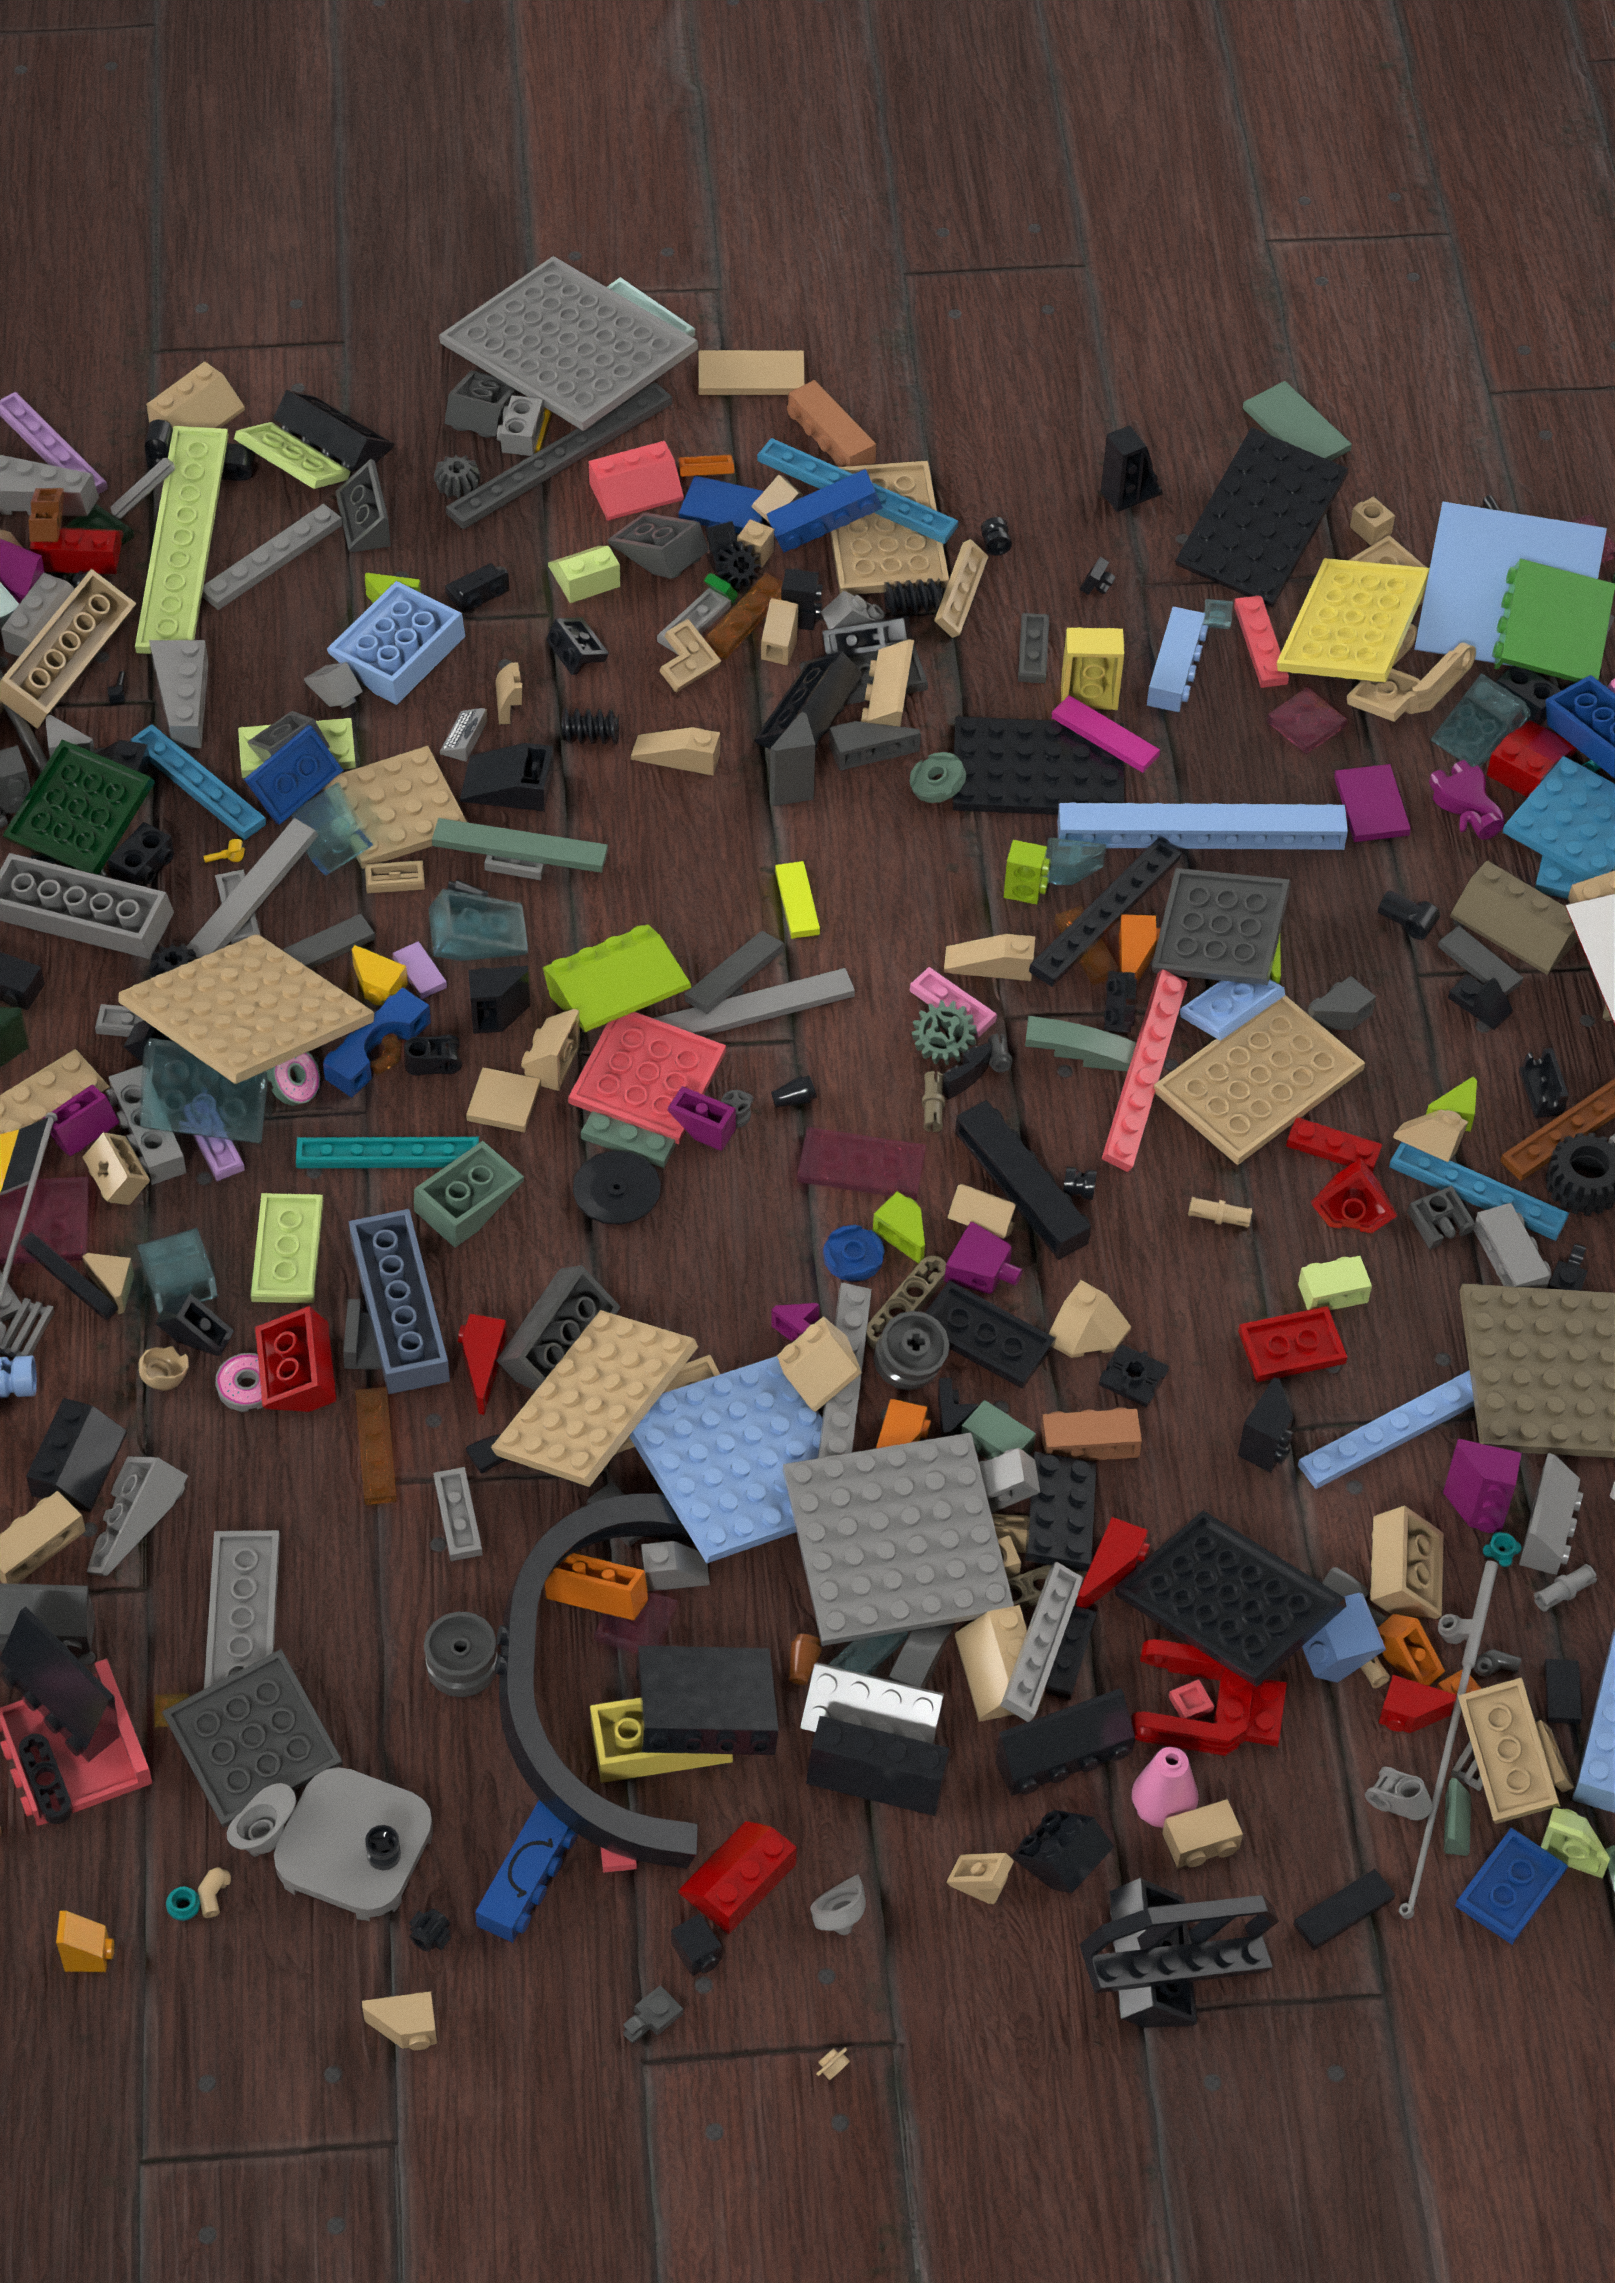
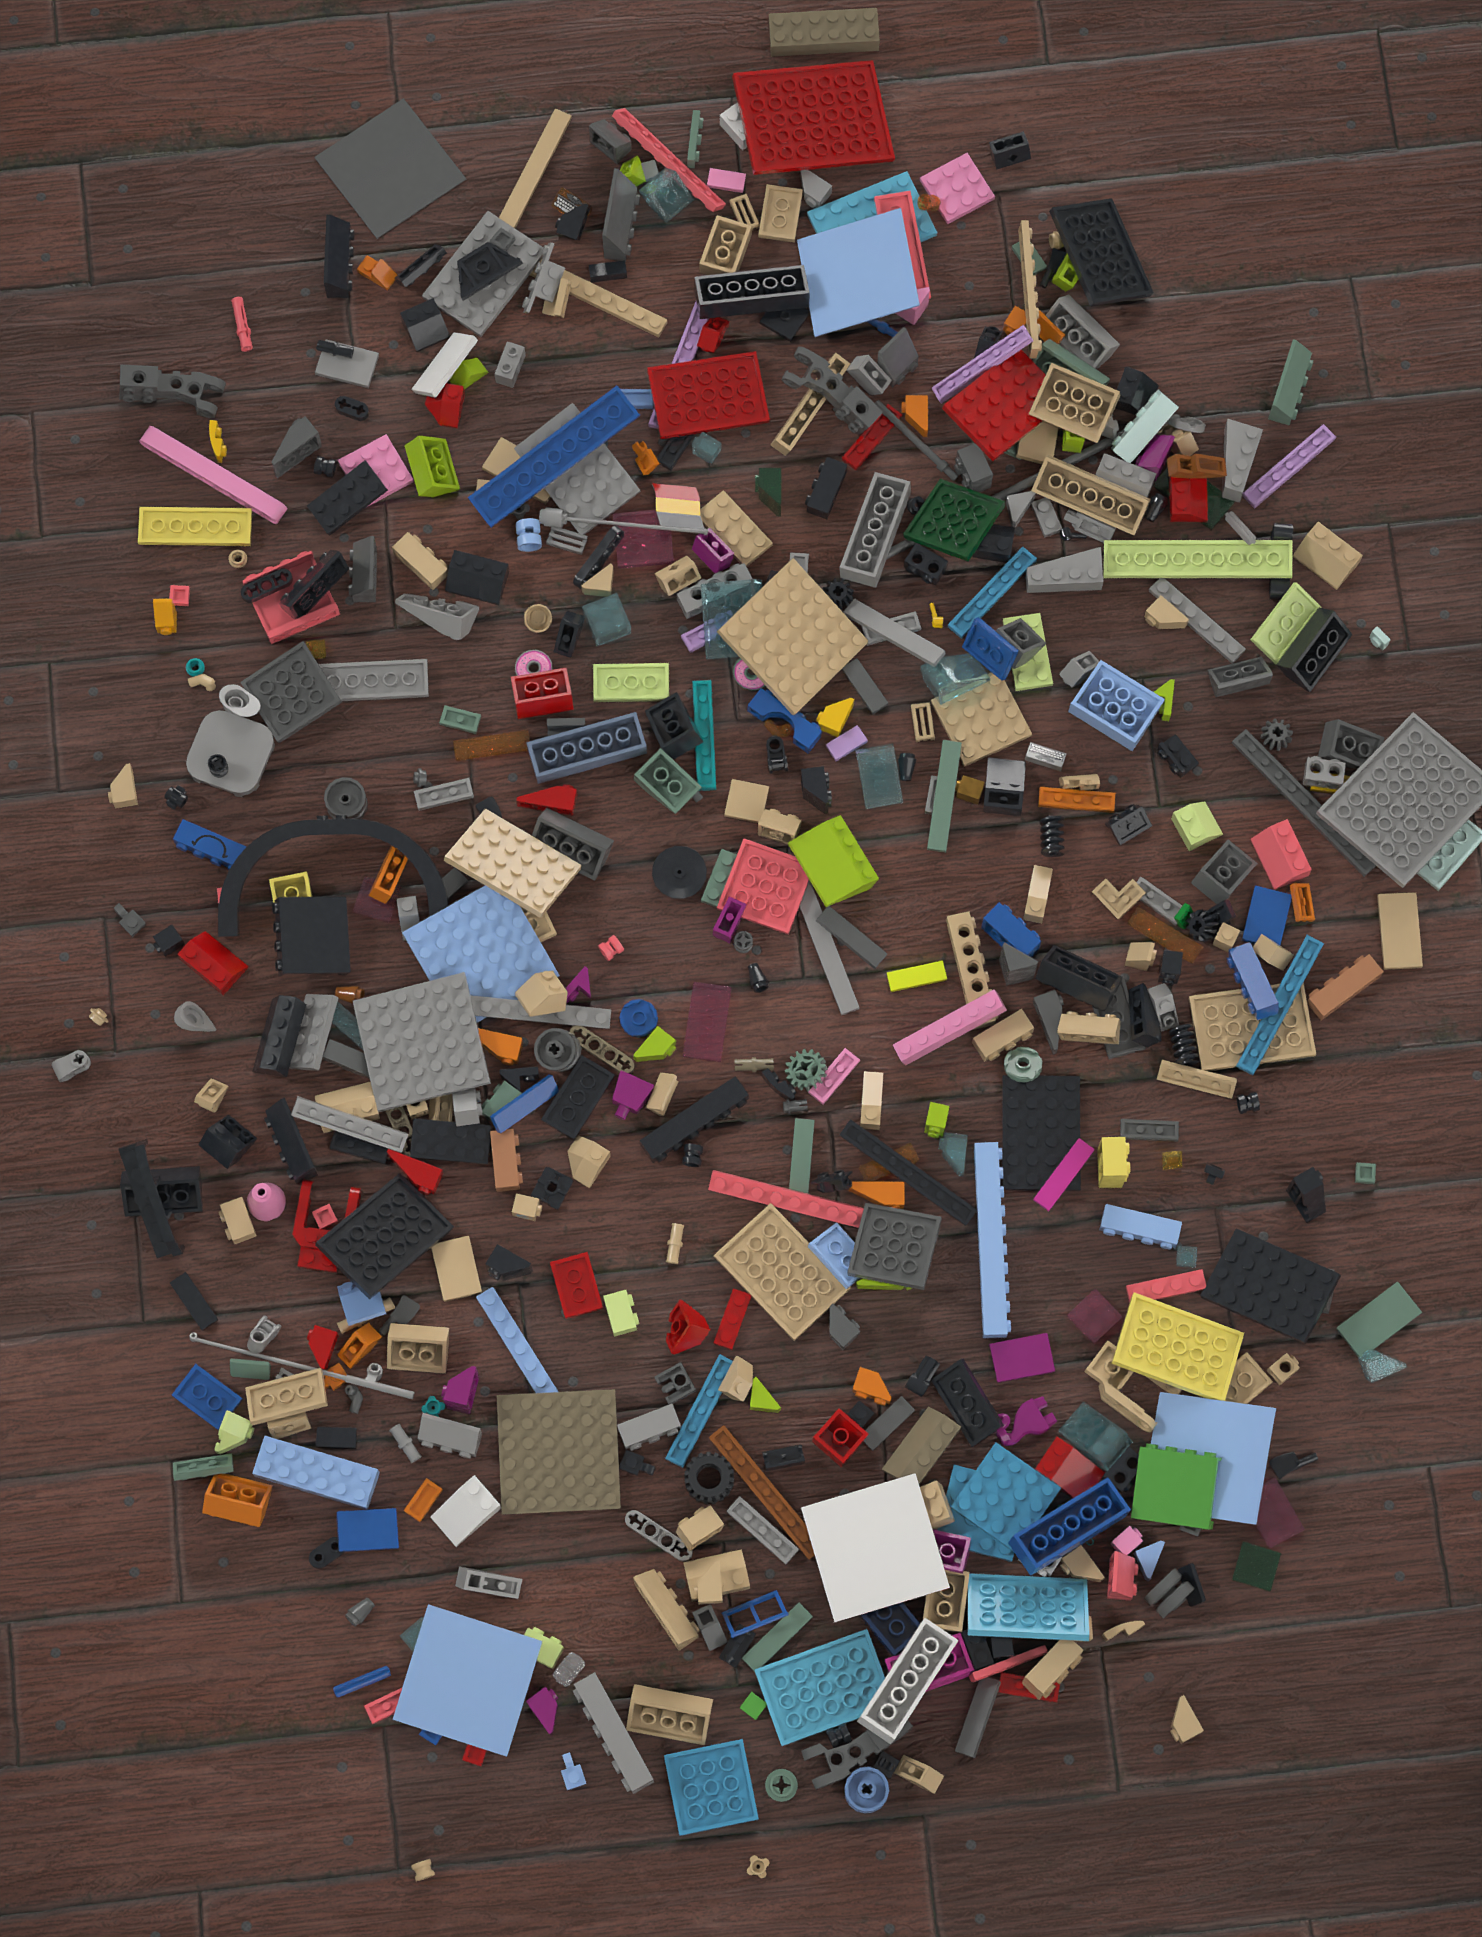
camera: 90 degrees right, 20 degrees up
(40, 1927) = (180, 595): none -> coral plate
(87, 714) = (1046, 517): none -> light grey plate
(108, 662) = (1090, 526): none -> light grey hinge
(259, 586) = (1165, 615): none -> tan slope
(326, 362) = (1379, 639): none -> light aqua plate
(327, 1487) = (460, 719): none -> sand green plate
(370, 1182) = (673, 726): none -> black slope
(425, 1547) = (420, 777): none -> dark grey plate
(511, 814) = (969, 789): none -> pearl gold brick
(535, 701) = (1076, 799): none -> orange tile
(736, 1279) = (610, 948): none -> coral wheel
(737, 775) = (1005, 927): none -> blue brick
(792, 831) = (965, 922): none -> tan brick
(886, 846) = (949, 1027): none -> bright pink brick
(893, 798) = (1003, 1035): none -> tan brick
(925, 2113) = (69, 1066): none -> light grey piece
(1001, 1398) = (524, 1104): none -> tile
(1075, 618) = (1172, 1160): none -> clear yellow slope
(1092, 428) = (1365, 1173): none -> sand green tile
(1168, 1408) = (526, 1207): none -> tan brick
(1273, 1510) = (456, 1268): none -> tan tile
(1363, 423) = (1379, 1365): none -> clear light blue slope
(1427, 972) = (871, 1385): none -> orange slope
(1446, 857) = (967, 1402): none -> black plate
(1513, 1008) = (840, 1437): none -> red slope

